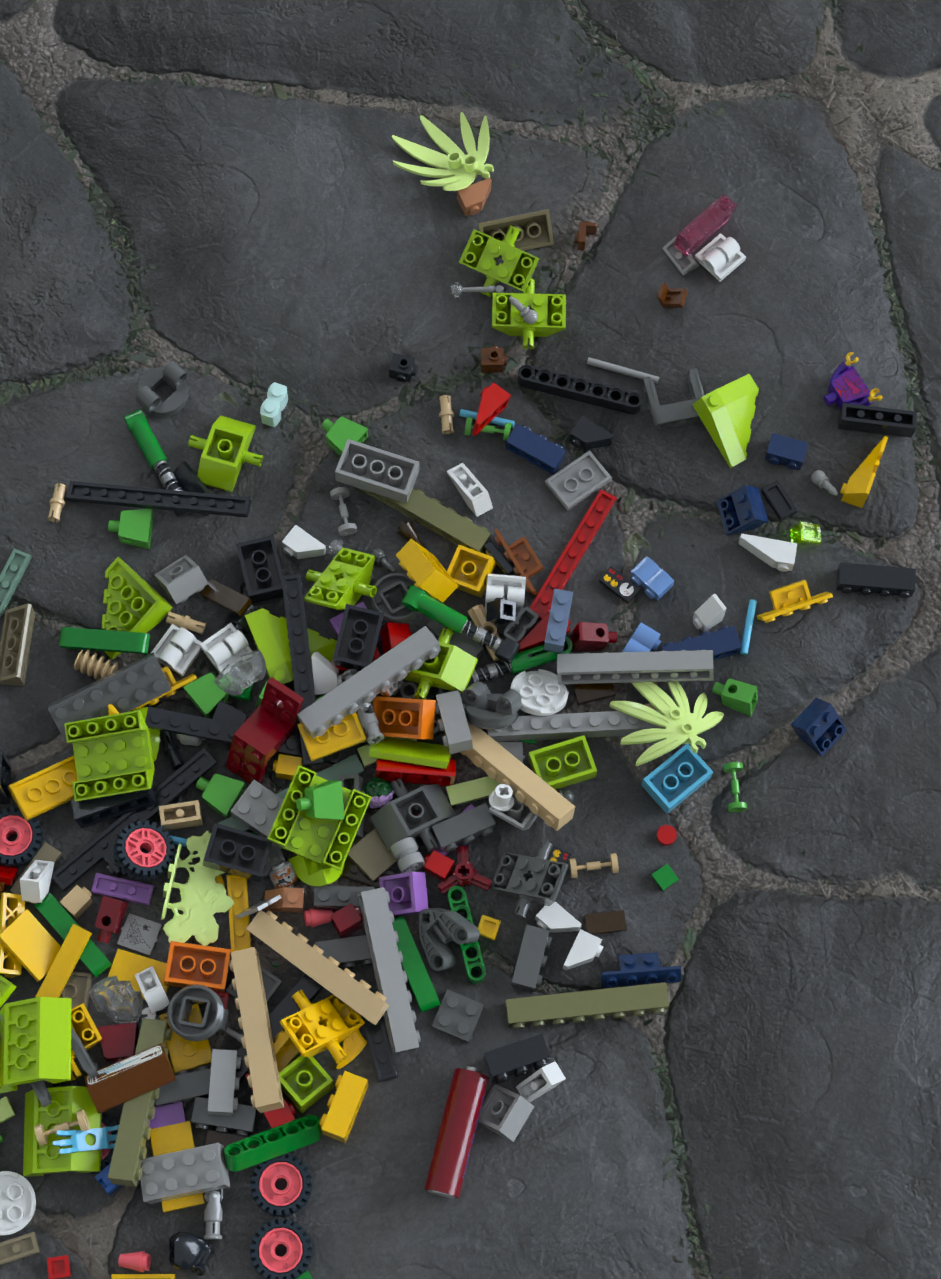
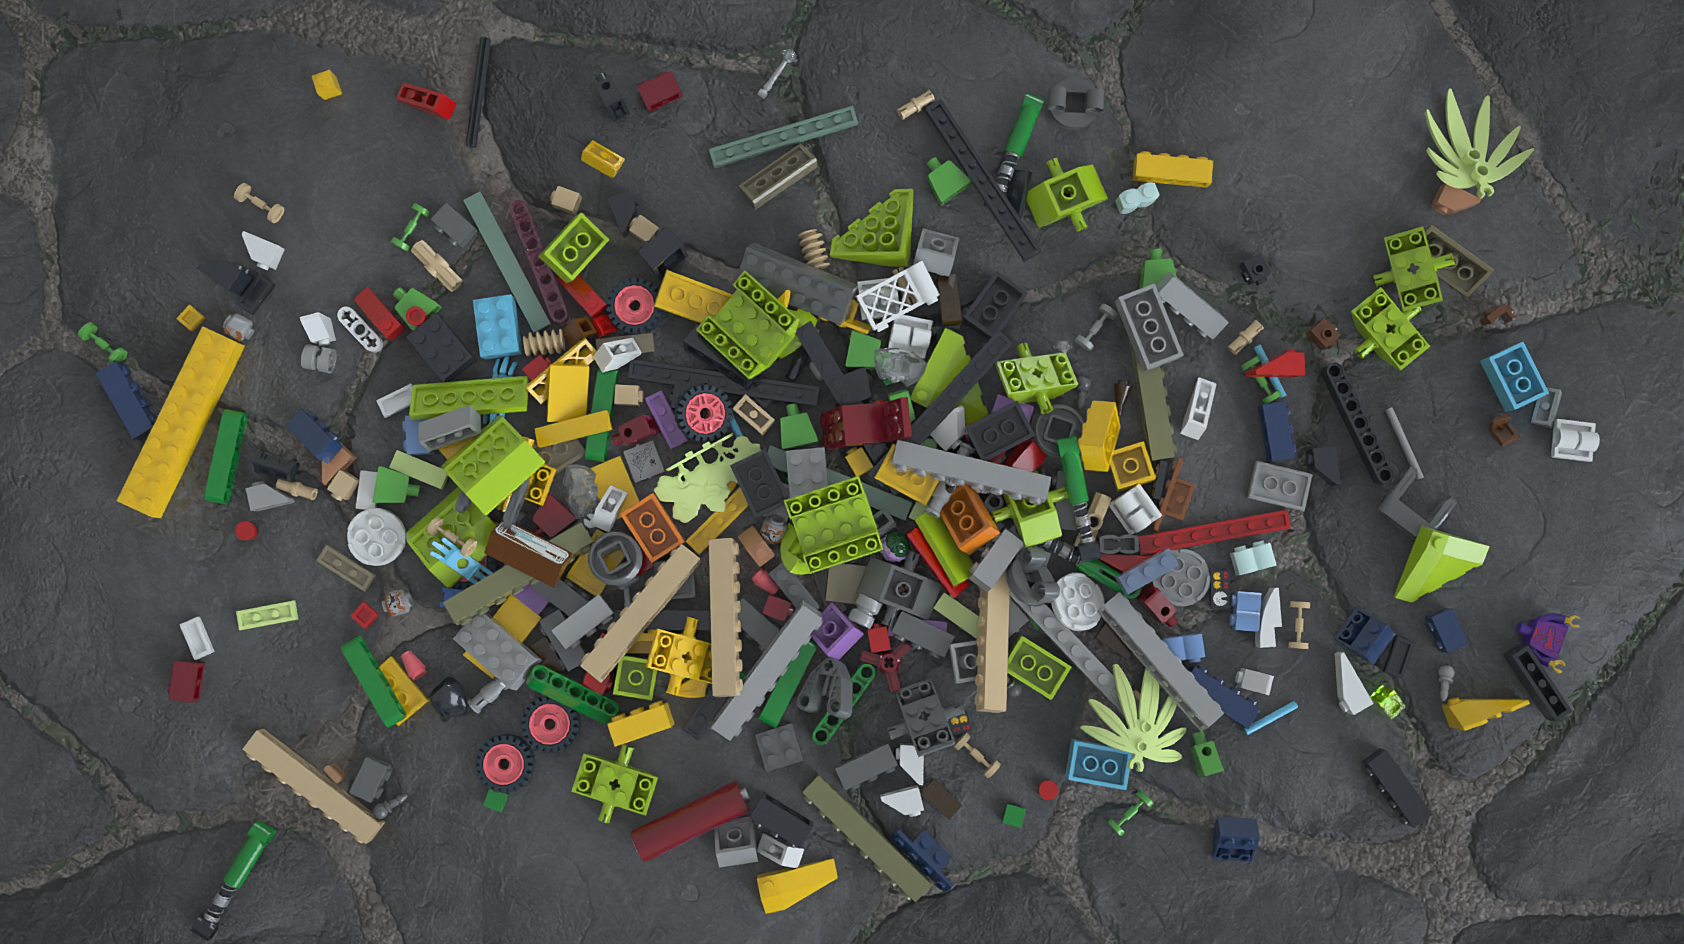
camera: 50 degrees right, 15 degrees up
(73, 1230) = (397, 602): none -> light grey head
(104, 640) = (837, 239): green beam -> none
(191, 607) = (920, 285): none -> white piece
(259, 906) = (733, 534): light grey piece -> none
(276, 364) = (1172, 170): none -> yellow brick
(302, 545) = (1041, 319): white slope -> none
(323, 800) = (847, 518): bright green torso -> none
(389, 430) = (1191, 305): none -> light grey brick
(395, 1163) = (596, 778): none -> lime slope
(457, 289) = (1360, 256): light grey piece -> none
(488, 927) = (863, 714): yellow tile -> none
(501, 611) = (1116, 520): black brick -> none
(502, 798) = (966, 647): white piece -> none
(529, 315) = (1385, 333): light grey bar -> none
(575, 1101) = (789, 885): none -> yellow wedge
(590, 602) = (1186, 582): none -> light grey tile
(616, 541) = (1252, 558): none -> light aqua brick
(638, 258) = (1514, 377): none -> medium azure brick
(672, 566) = (1269, 618): none -> white slope
(680, 536) = (1299, 625): none -> tan wheel
(705, 225) = (1591, 406): clear pink brick -> none
(791, 598) = (1323, 734): yellow bracket -> none

